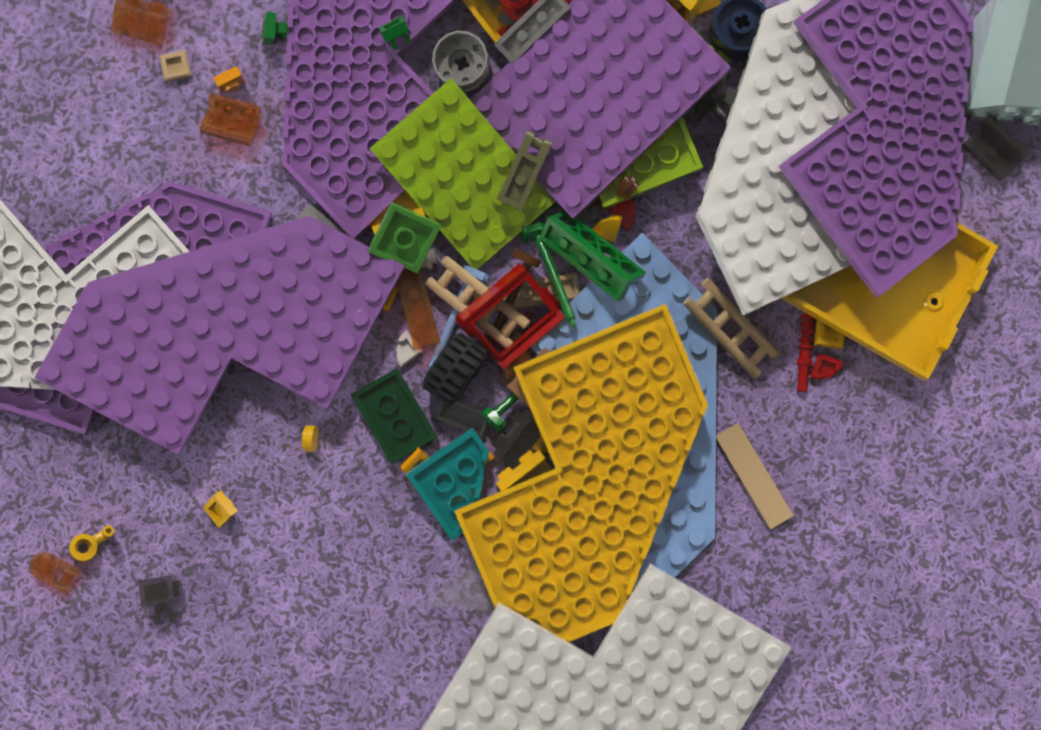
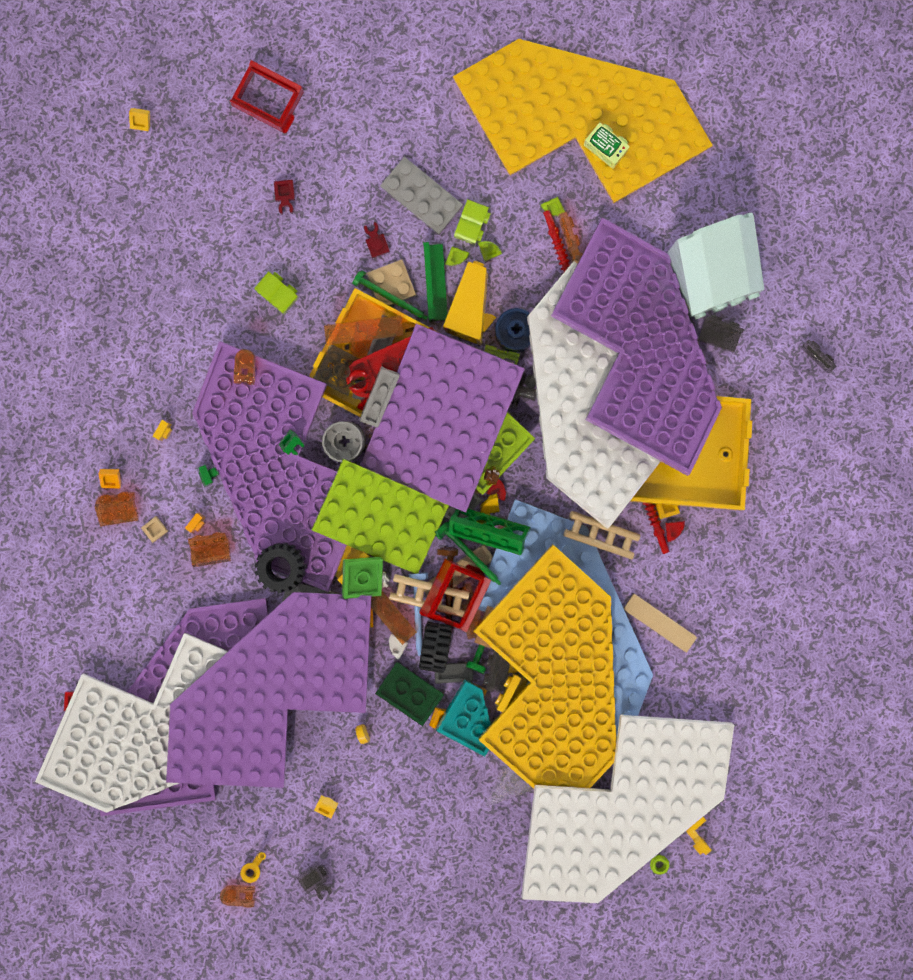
camera: 25 degrees left, 5 degrees up
(290, 167) = (265, 571): none -> black tyre
(523, 171) = (420, 498): olive plate -> none

